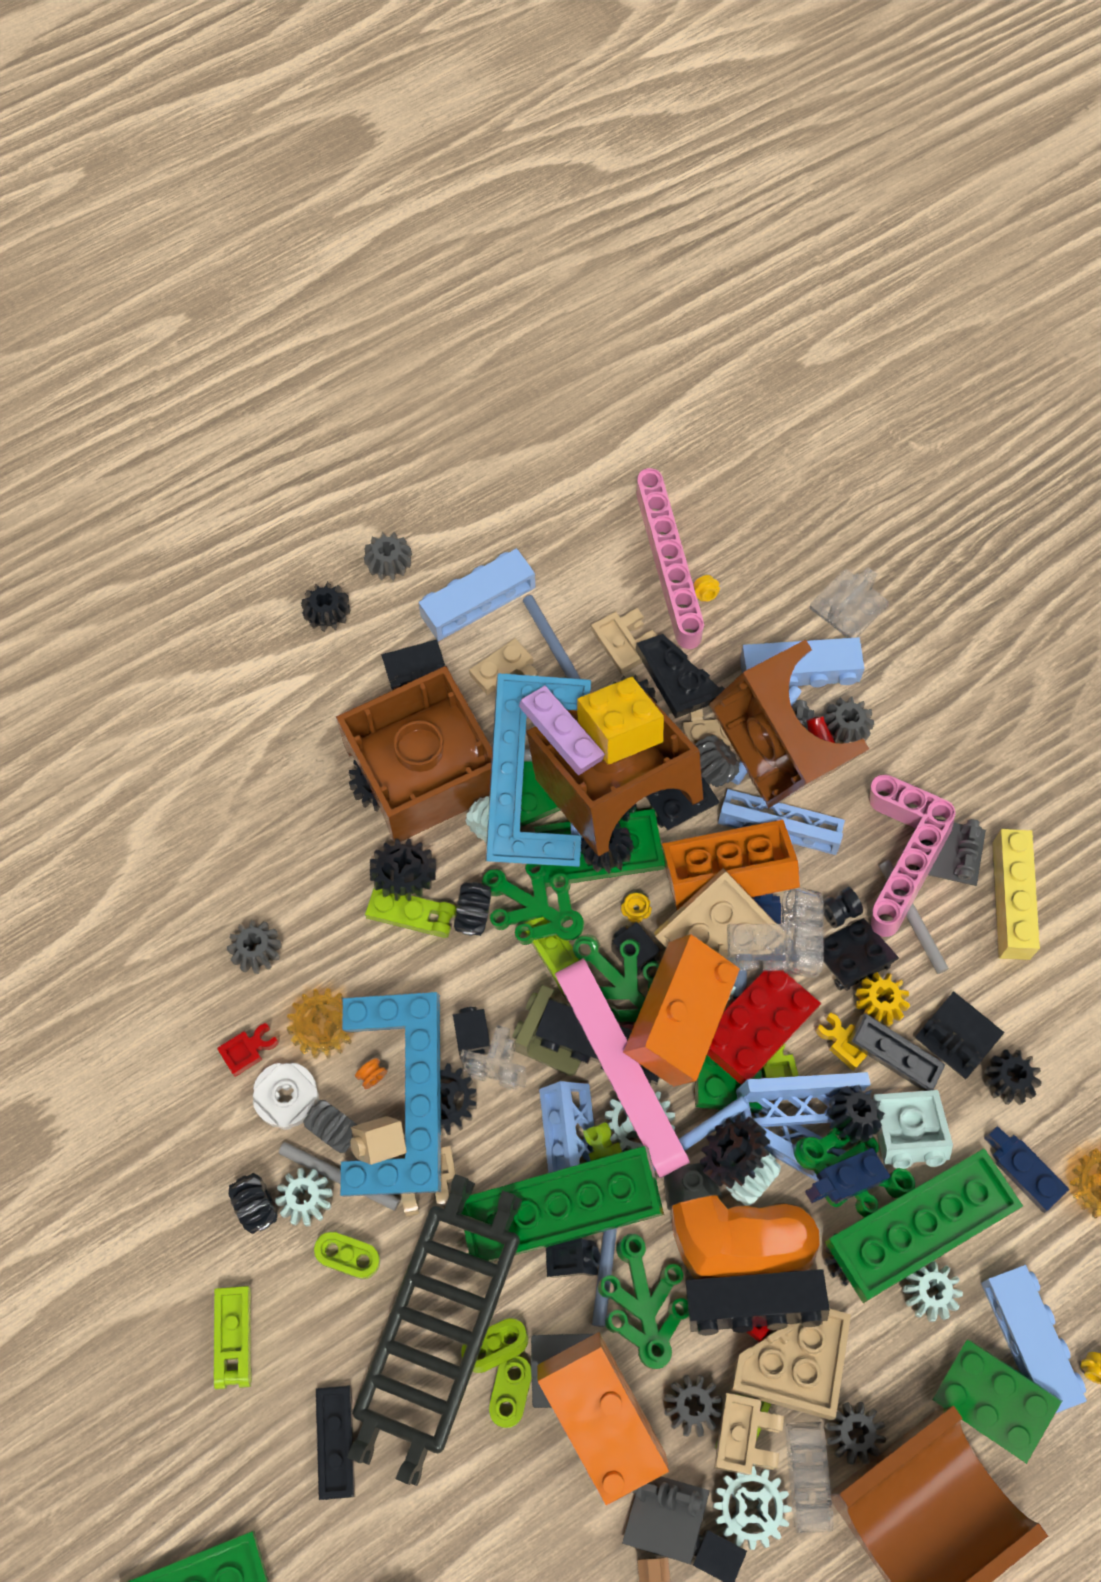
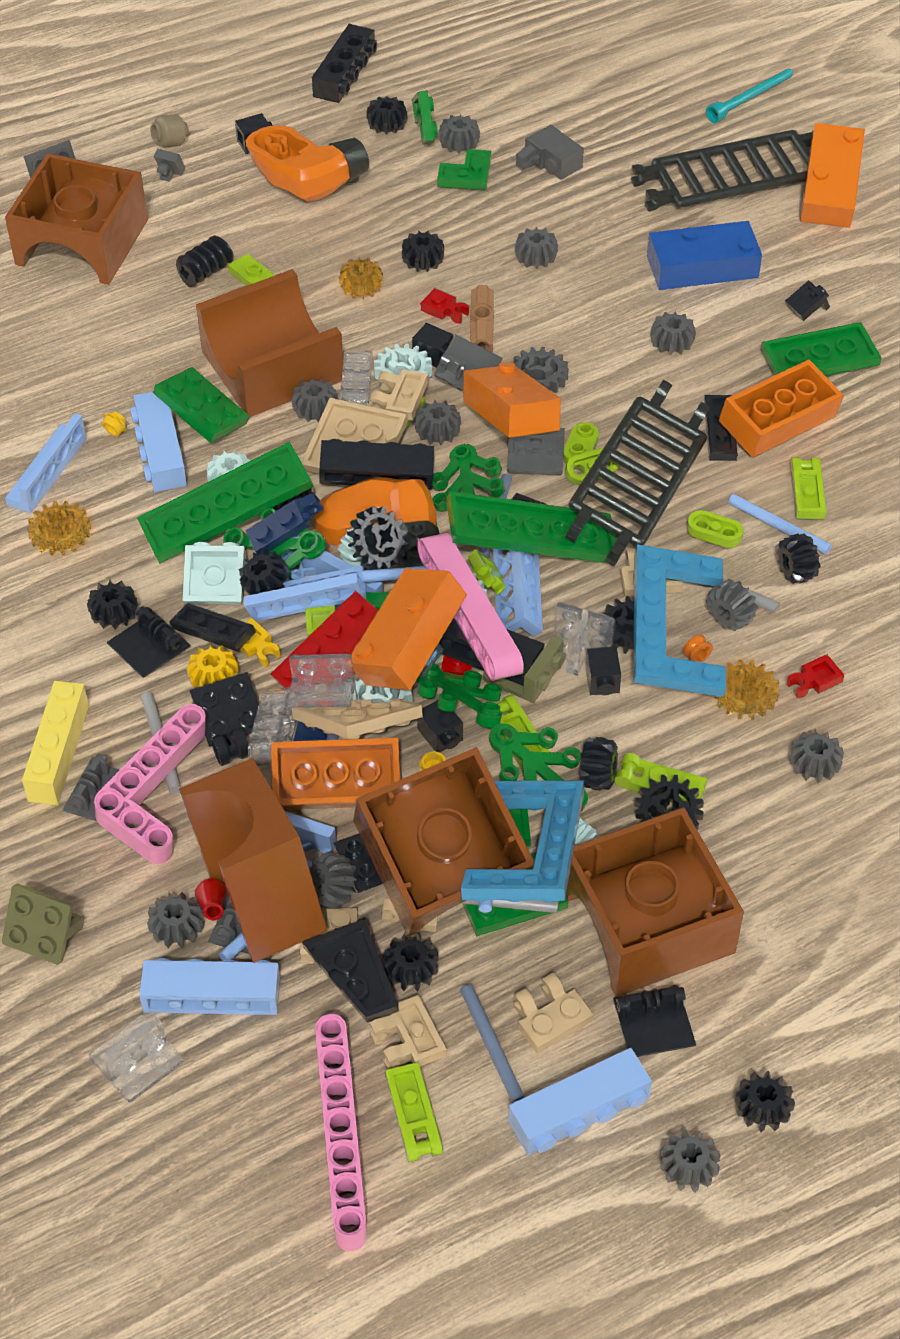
camera: 175 degrees left, 15 degrees down
(254, 1461) = (780, 408): none -> orange brick
(266, 1095) = (772, 654): white plate -> none
(271, 1278) = (776, 521): none -> light blue bar
(293, 1206) = (754, 566): light aqua gear -> none
(378, 1140) = (690, 580): tan brick -> none
(561, 730) = (499, 831): lavender plate -> none
(583, 1532) = (541, 367): none -> dark grey gear
(613, 579) = (413, 1111): none -> lime plate
(620, 719) = (435, 839): yellow brick -> none
(706, 588) = (302, 1086): yellow plate -> none
(965, 709) = (39, 923): none -> olive bracket
(1026, 1169) = (123, 547): dark blue hinge -> none

